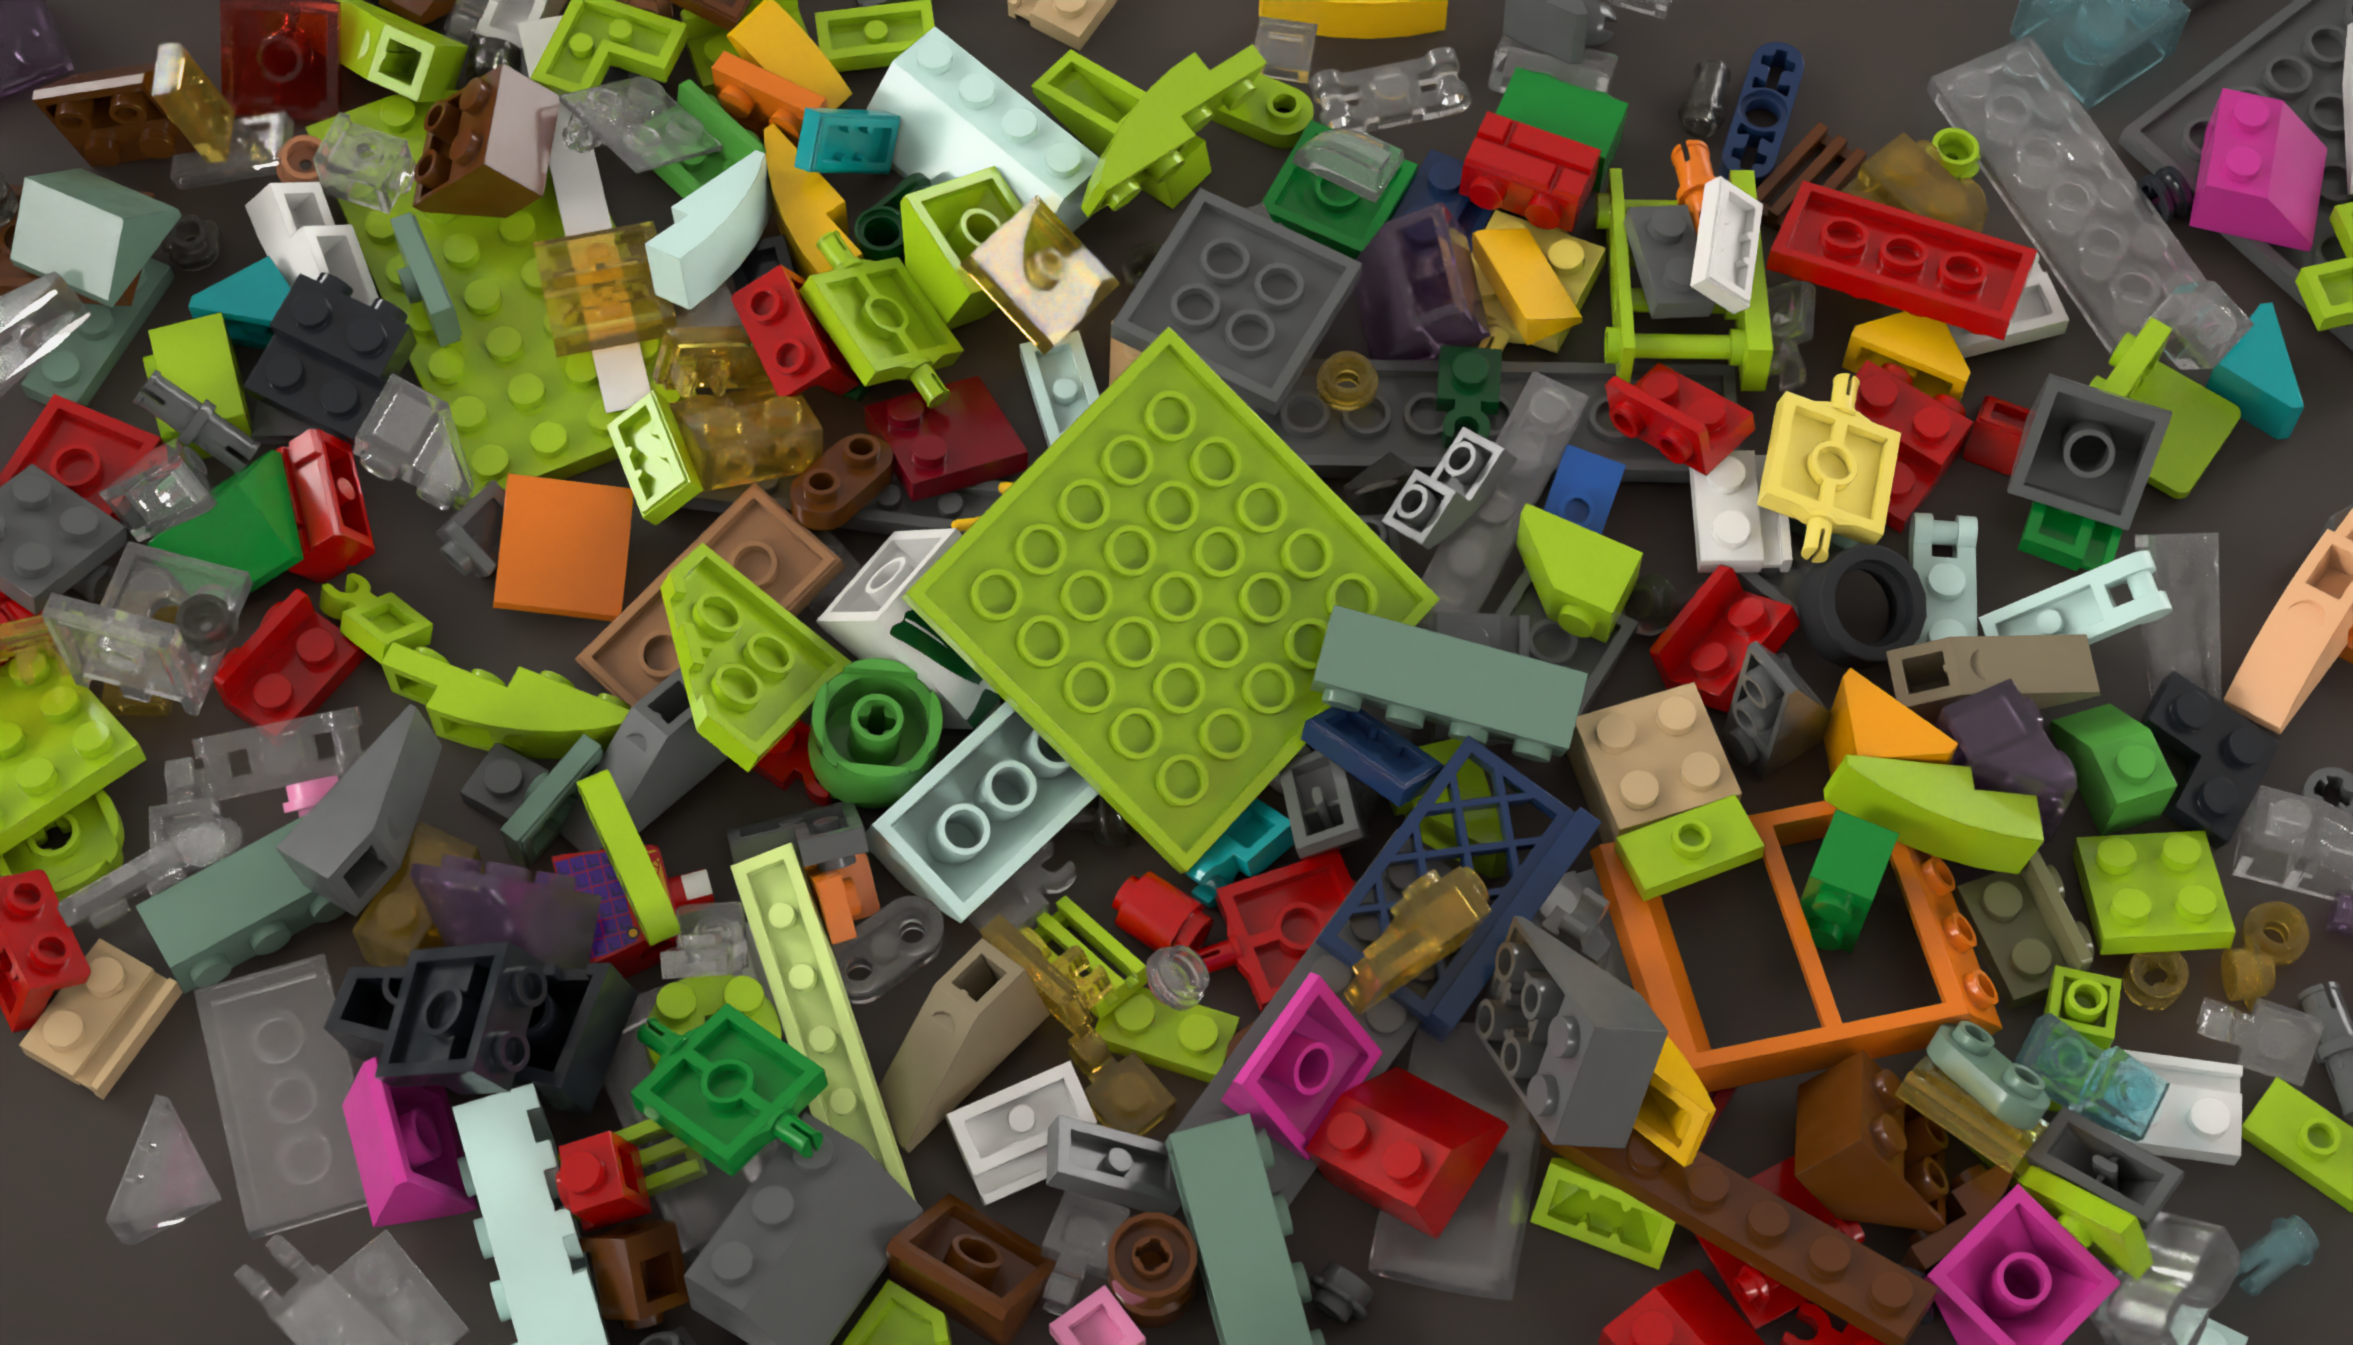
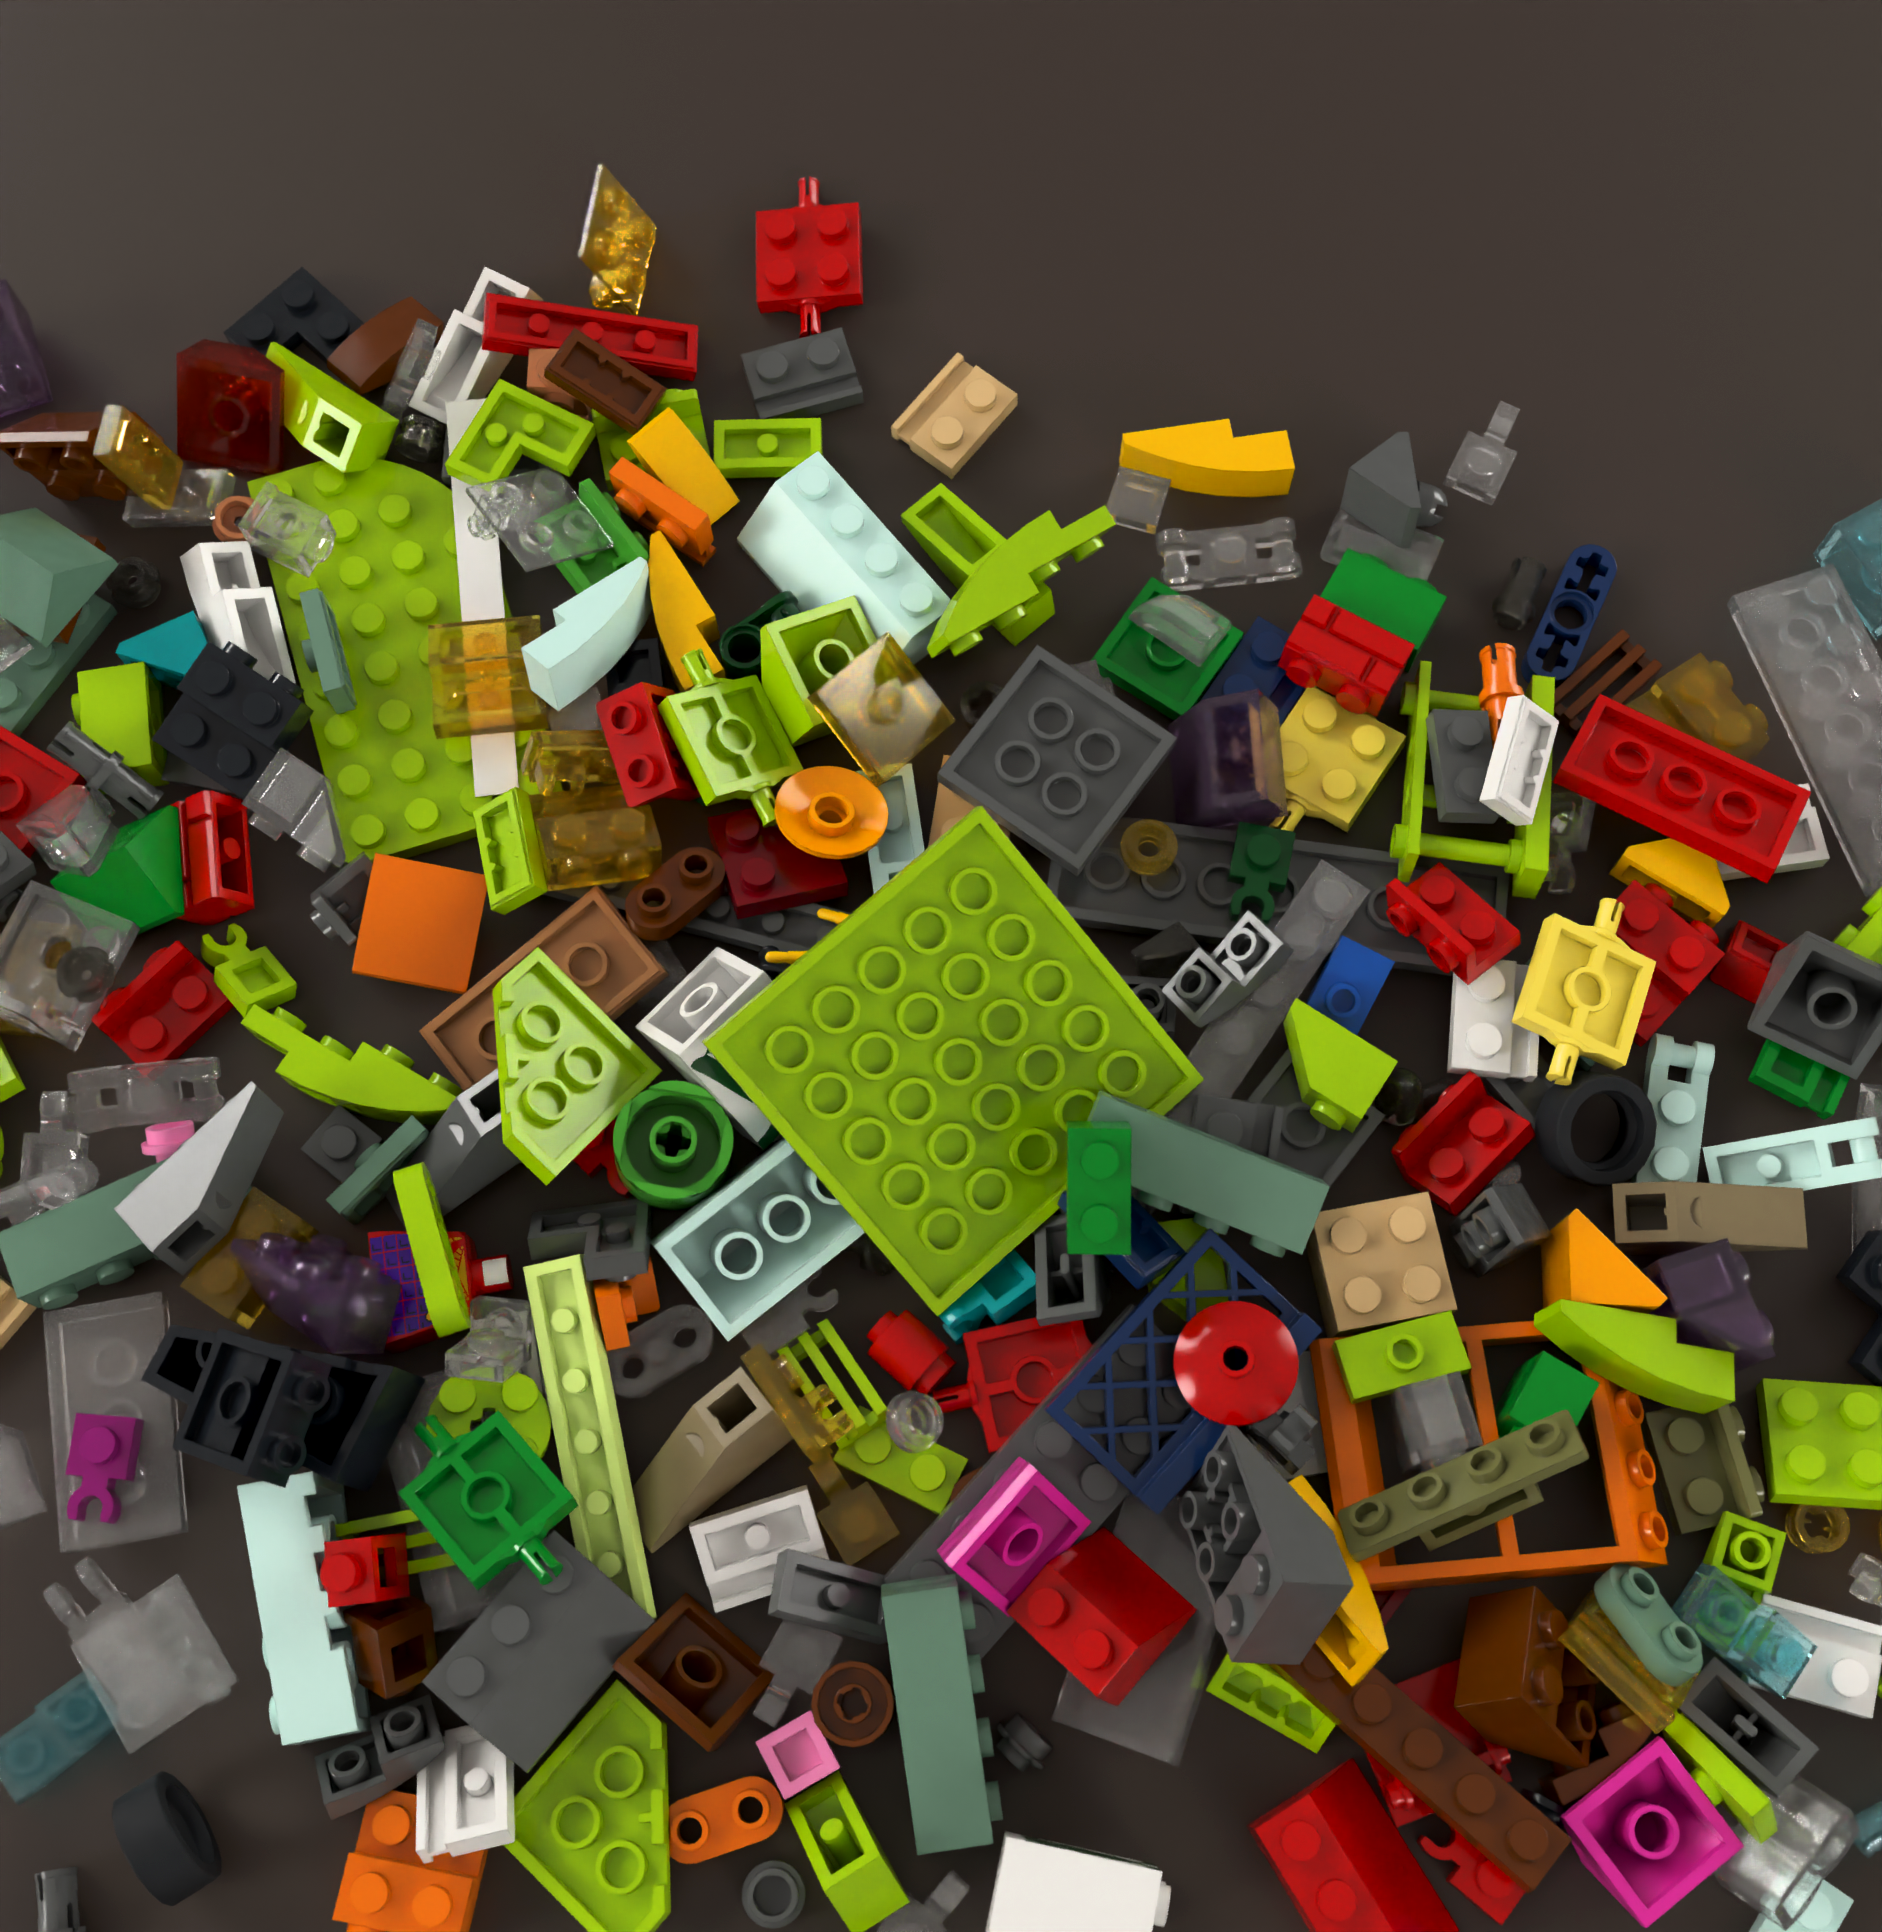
camera: 10 degrees right, 10 degrees up
(281, 1123) = (102, 1452): none -> magenta plate
(405, 1150) = (199, 1505): dark pink slope -> none
(487, 147) = (399, 526): reddish brown slope -> none
(847, 141) = (723, 555): teal plate -> none
(1000, 381) = (835, 796): none -> light orange dish
(1259, 117) = (1105, 564): lime plate -> none
(1344, 692) = (1098, 1187): none -> green brick
(1426, 927) = (1148, 1428): clear yellow plate -> none
(1524, 283) = (1326, 767): yellow slope -> none
(1528, 888) = (1240, 1395): none -> red dish
(1733, 911) = (1433, 1422): none -> clear slope
(1779, 958) = (1466, 1490): none -> olive bracket
(1958, 152) = (1752, 671): lime plate -> none
(2115, 767) = (1808, 1309): bright green slope -> none

